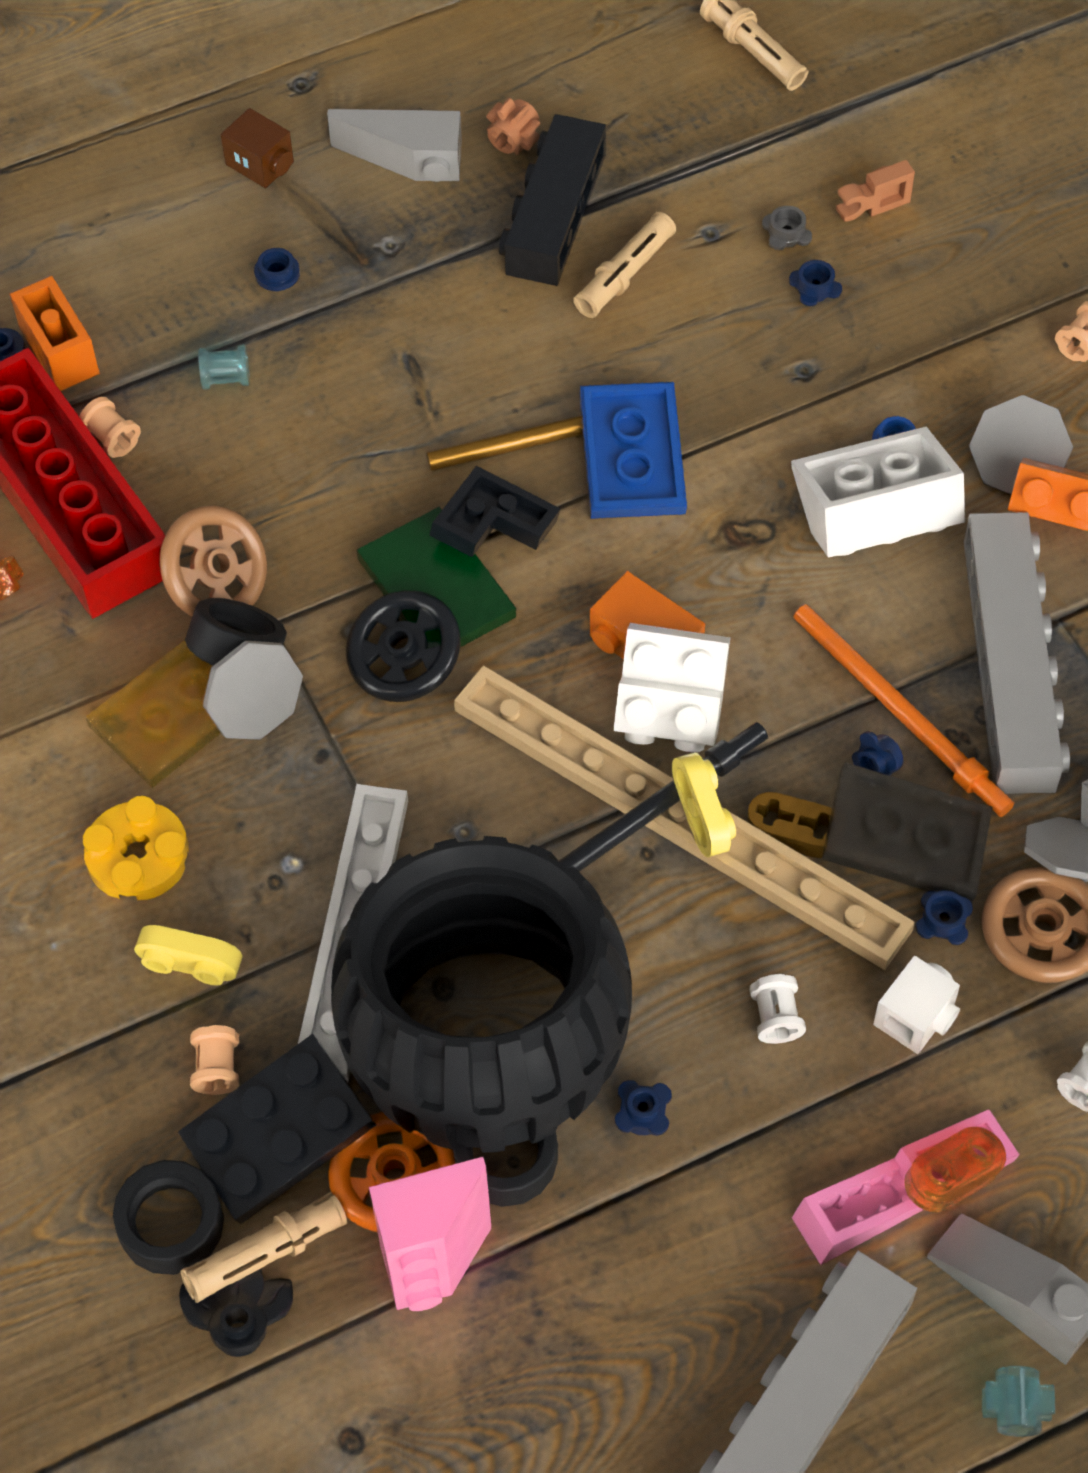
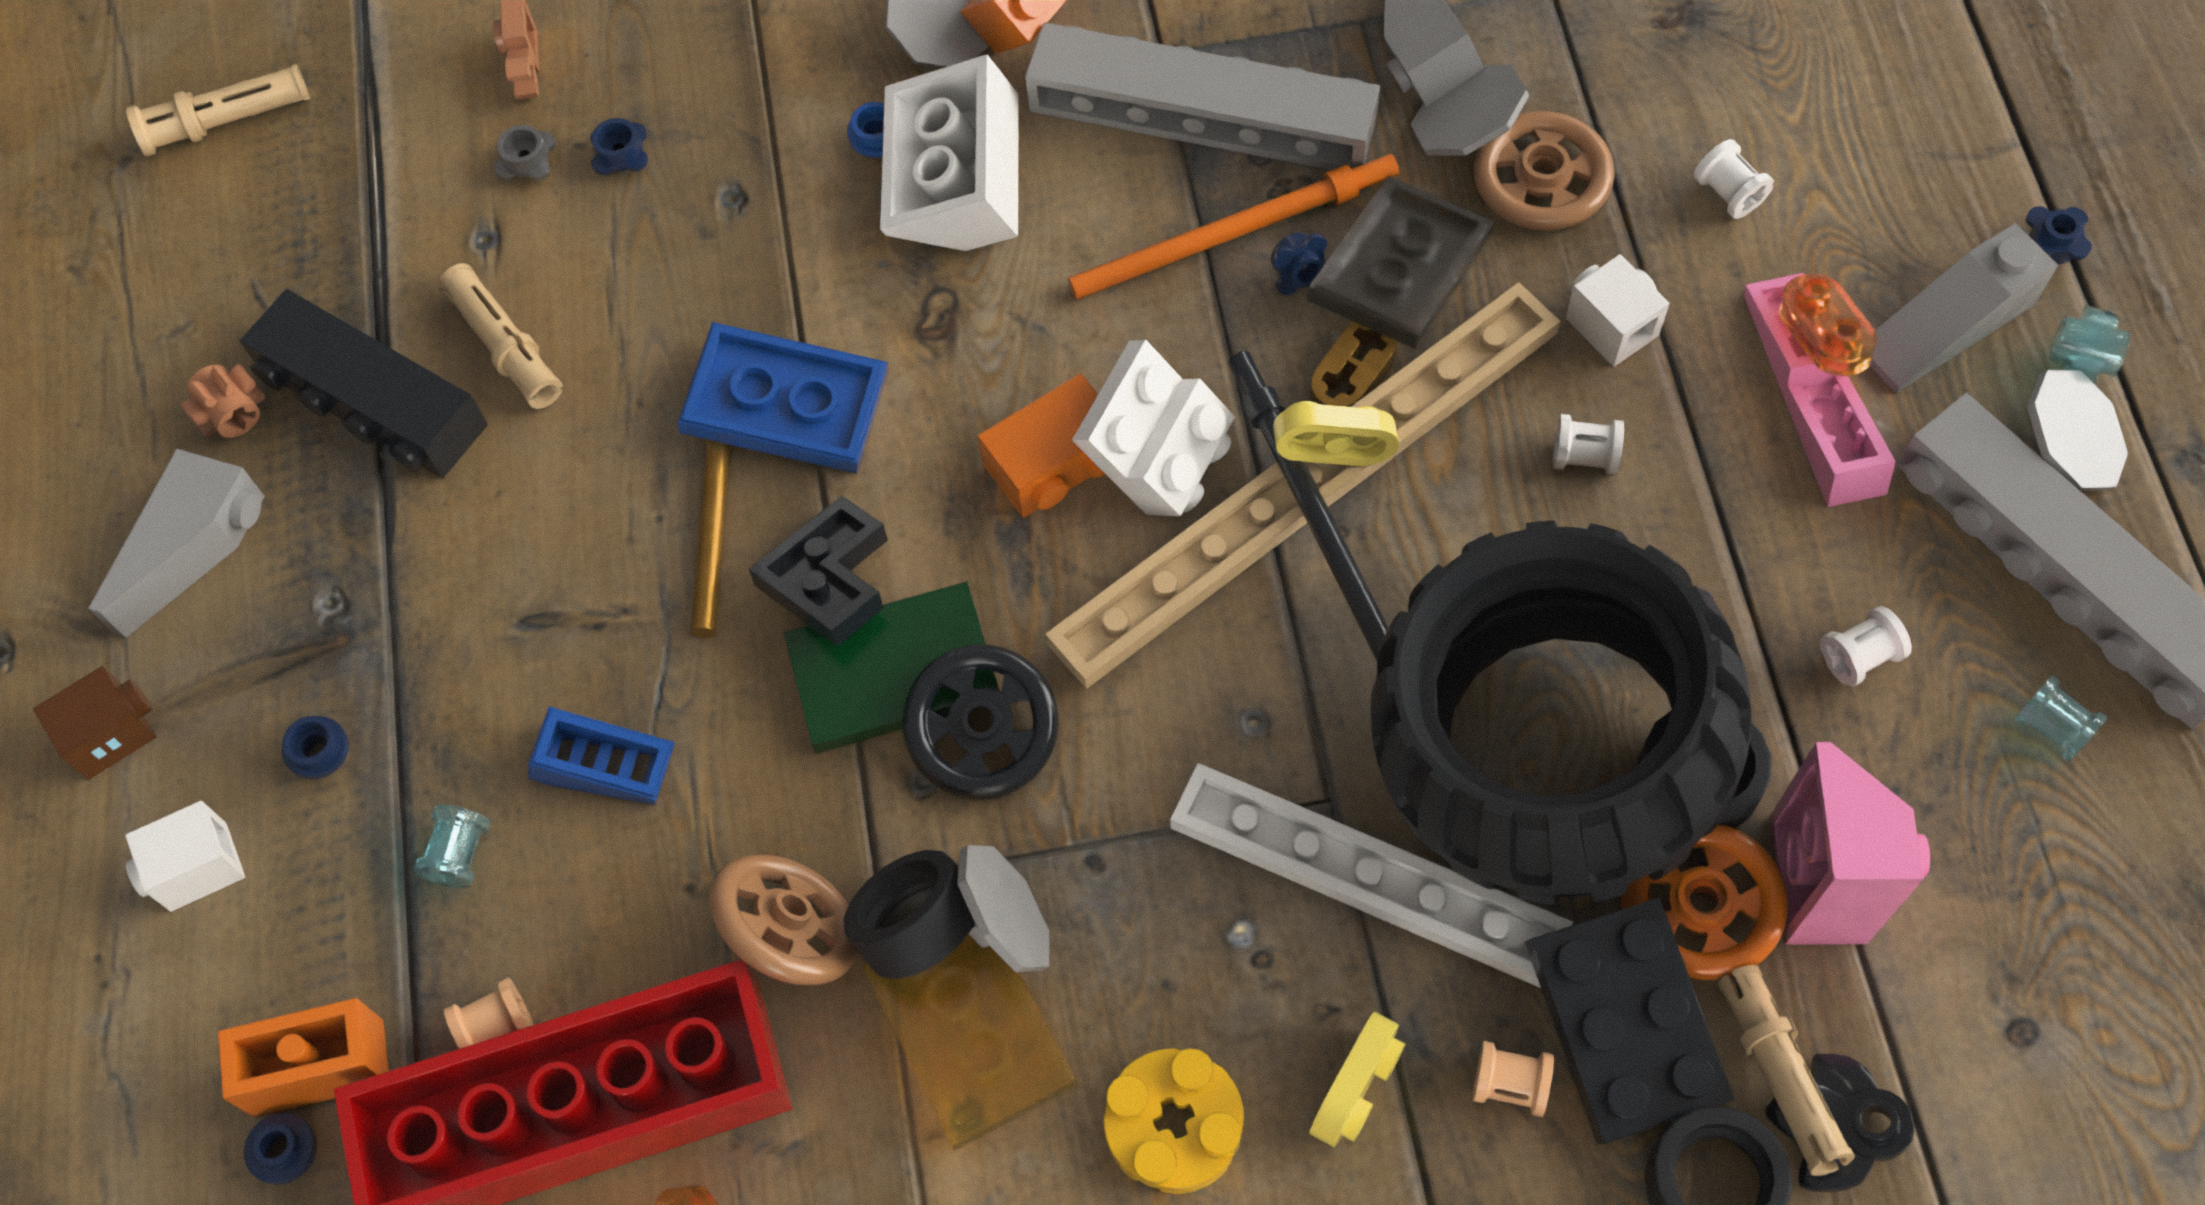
camera: 70 degrees left, 5 degrees up
(178, 228) = (183, 857): none -> white brick
(313, 396) = (583, 730): none -> blue slope
(632, 1424) = (2060, 718): none -> clear light blue bush
(653, 1256) = (1865, 646): none -> white bush
(921, 1399) = (2077, 430): none -> piece
(946, 903) = (1509, 245): dark blue plate -> none

